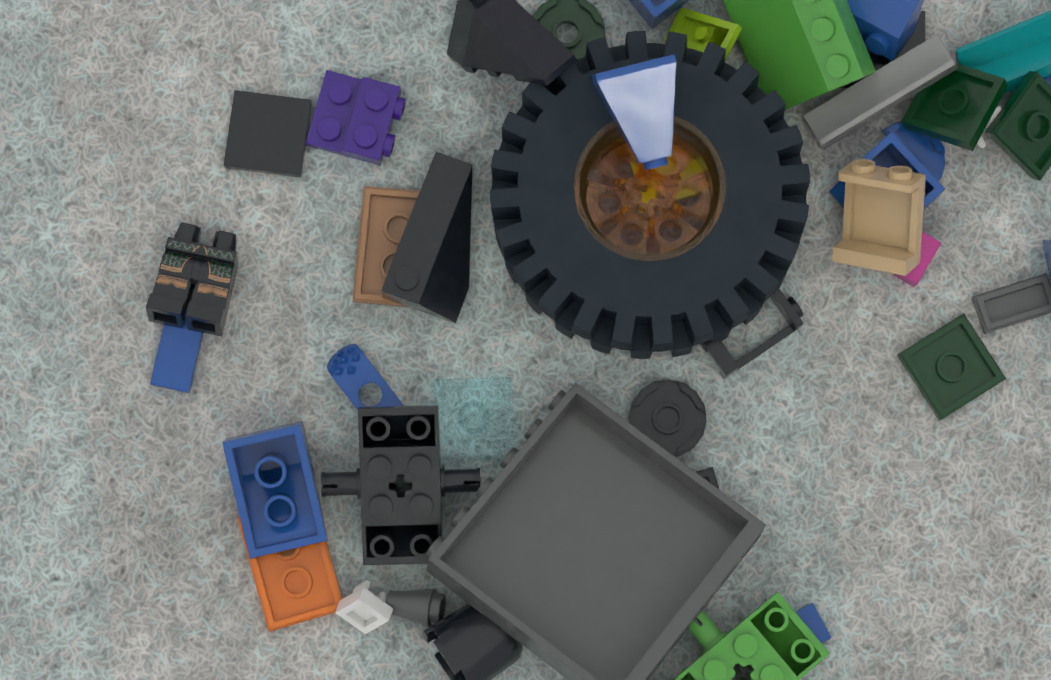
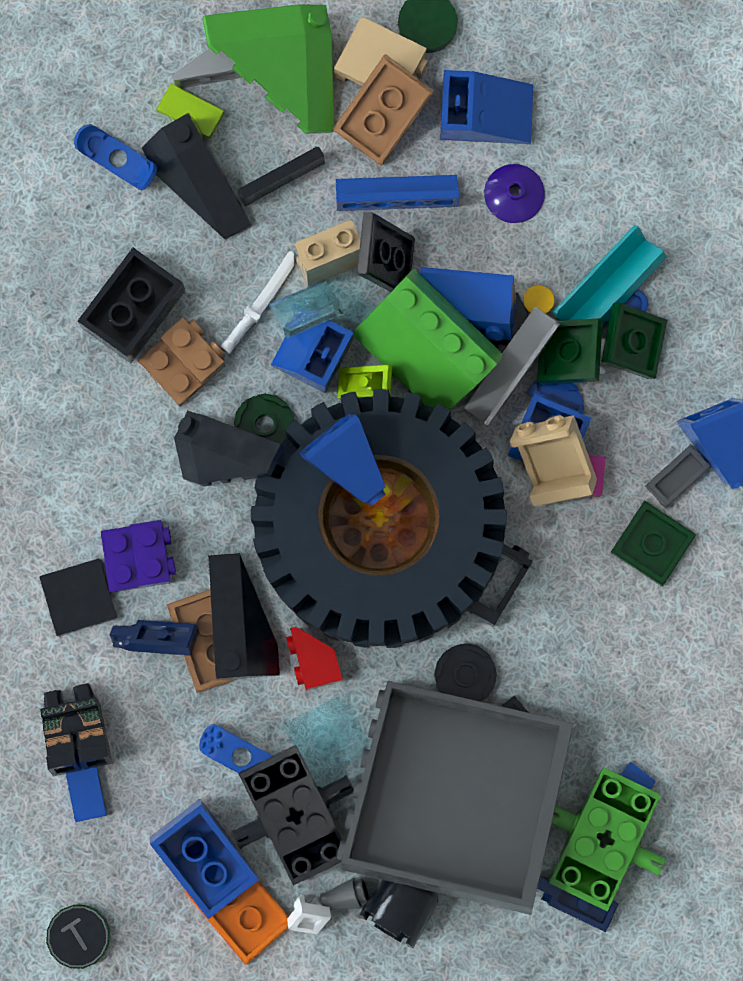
camera: 25 degrees left, 0 degrees up
(95, 513) = (78, 936): none -> black tile
(335, 216) = (156, 637): none -> dark blue hinge
(504, 323) = (316, 660): none -> red slope
(948, 27) = (539, 297): none -> yellow tile

